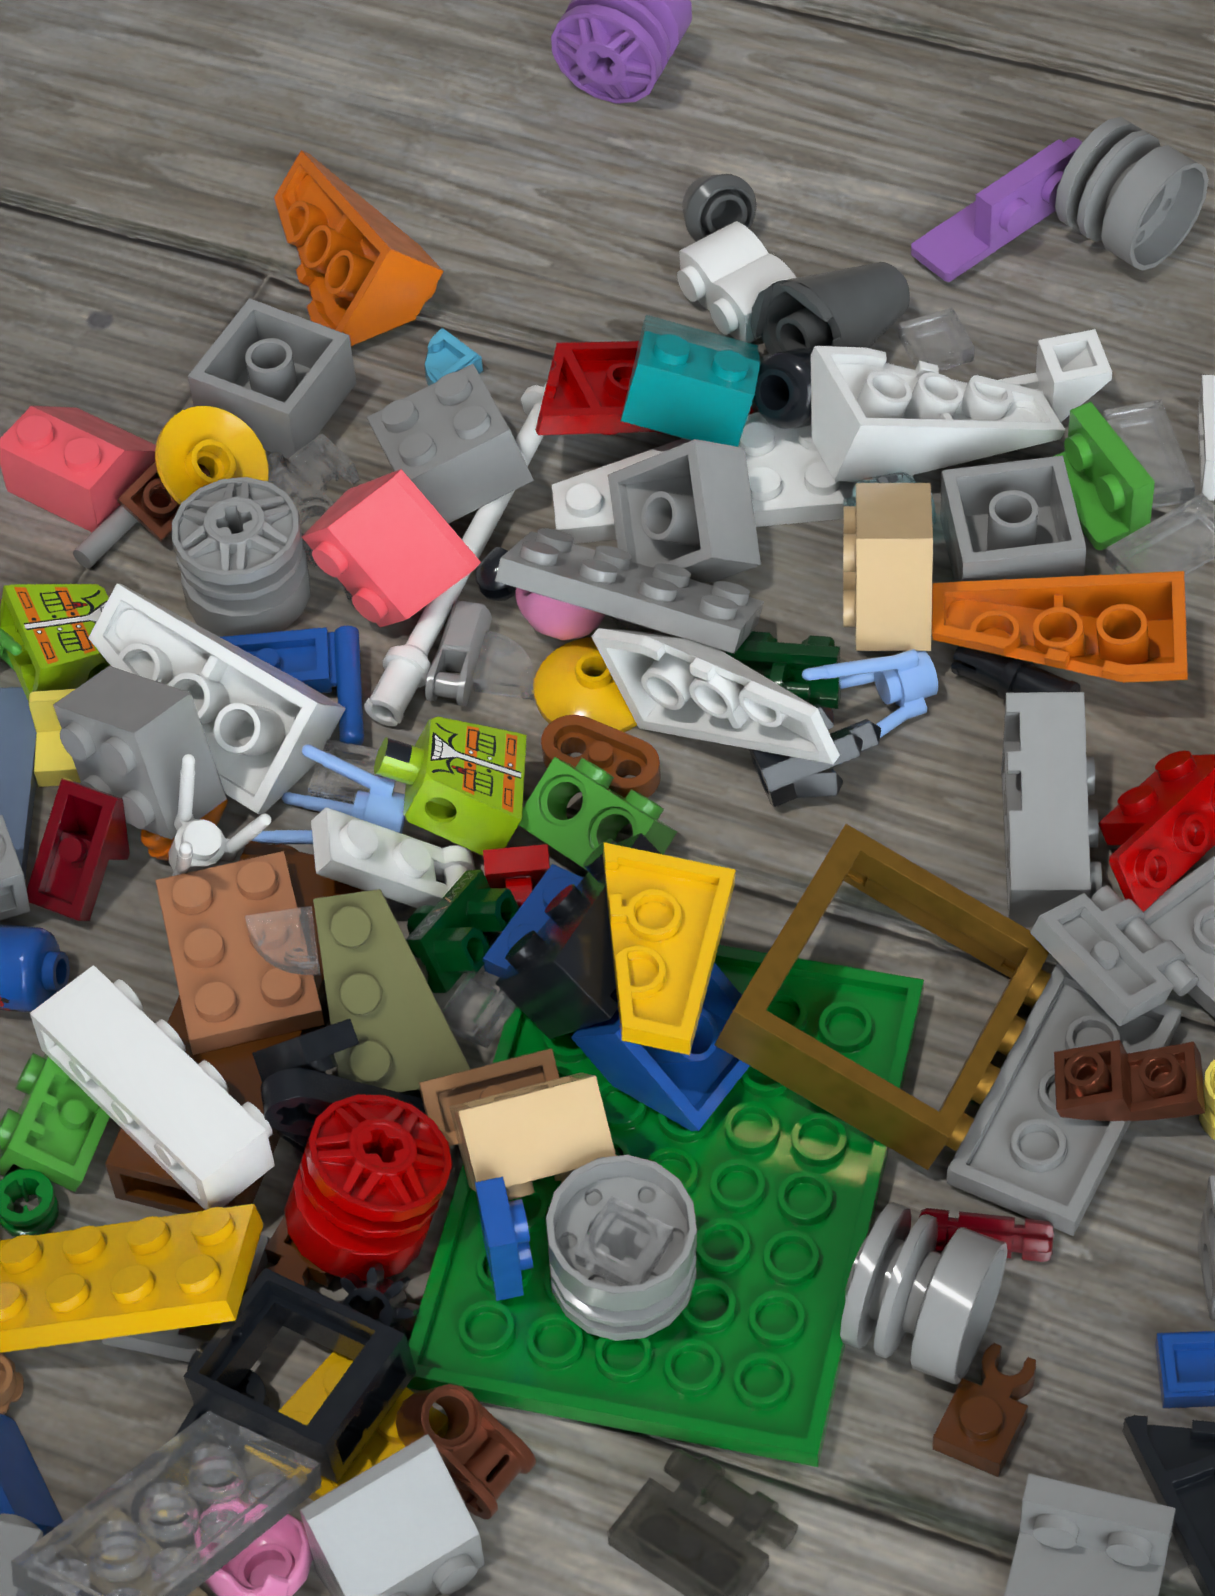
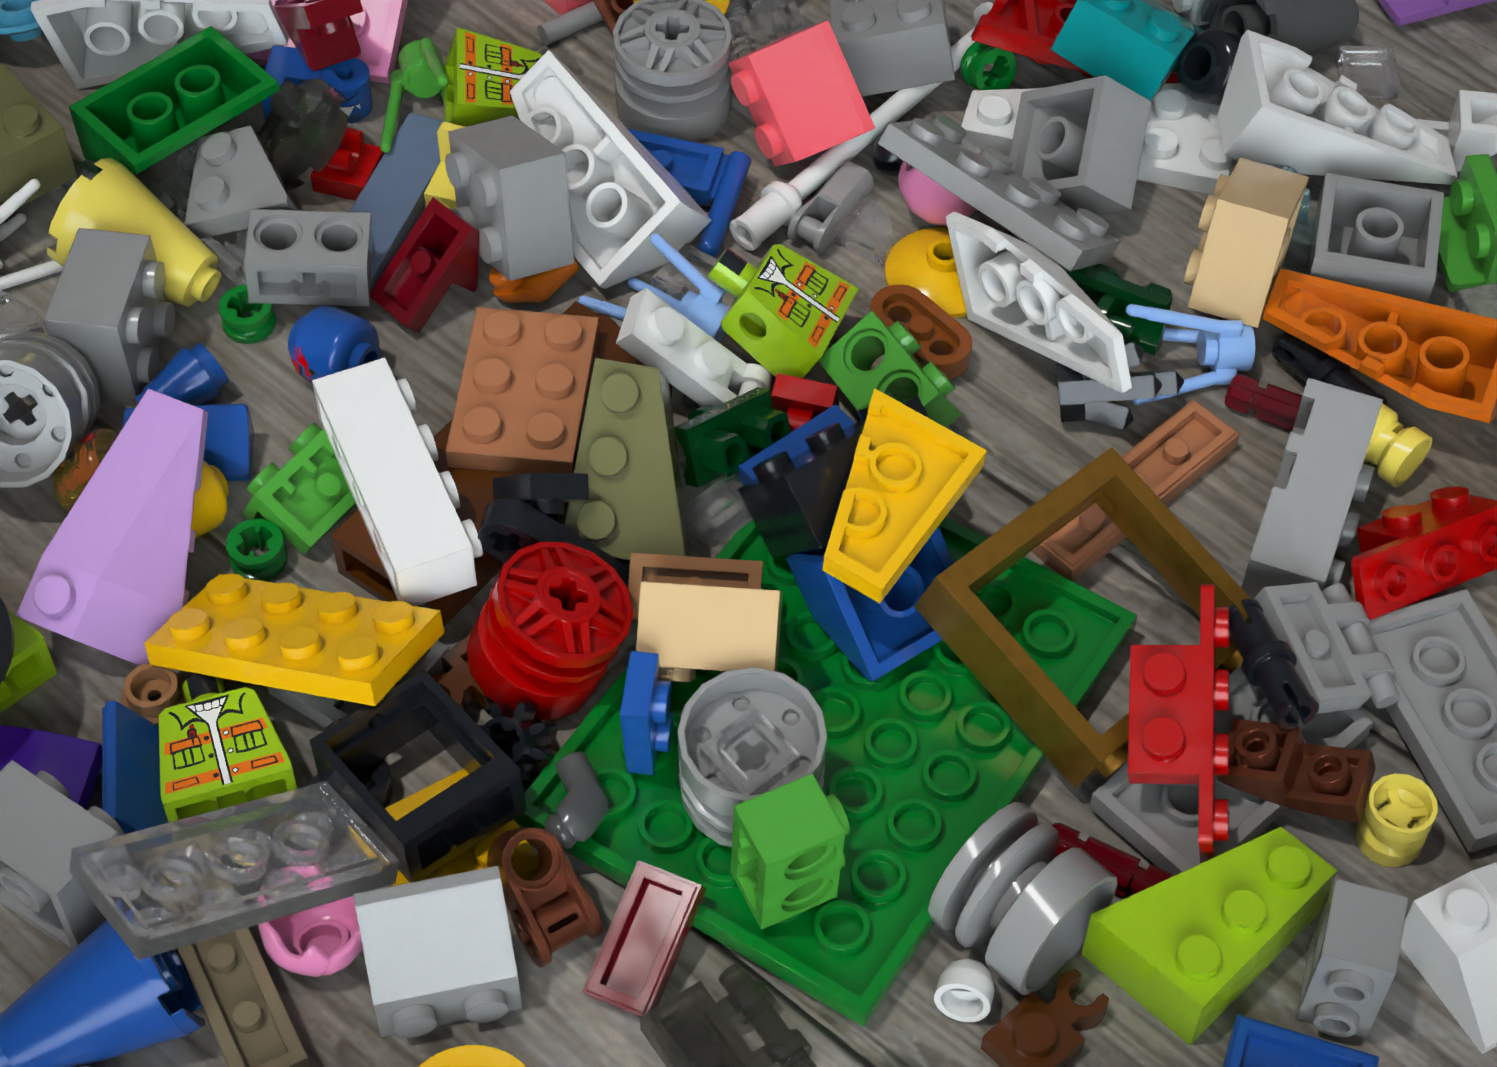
camera: 15 degrees right, 0 degrees up
(87, 1421) = (218, 750): none -> lime torso
(198, 841) = (531, 287): white plant -> none
(286, 939) = (563, 389): clear tile -> none
(471, 1343) = (583, 805): none -> dark grey arm
(545, 457) = (975, 60): none -> green bush
(580, 1457) = (644, 940): none -> tile
(692, 1324) = (788, 850): none -> bright green brick
(893, 815) = (1166, 462): none -> nougat tile
(900, 1399) = (965, 991): none -> white hinge
(971, 722) = (1271, 404): none -> dark red axle
(1002, 1071) = (1174, 718): none -> red bracket
(1070, 989) = (1270, 665): none -> black pin
(1104, 1263) = (1210, 929): none -> lime wedge
(1108, 730) = (1395, 448): none -> light yellow wheel

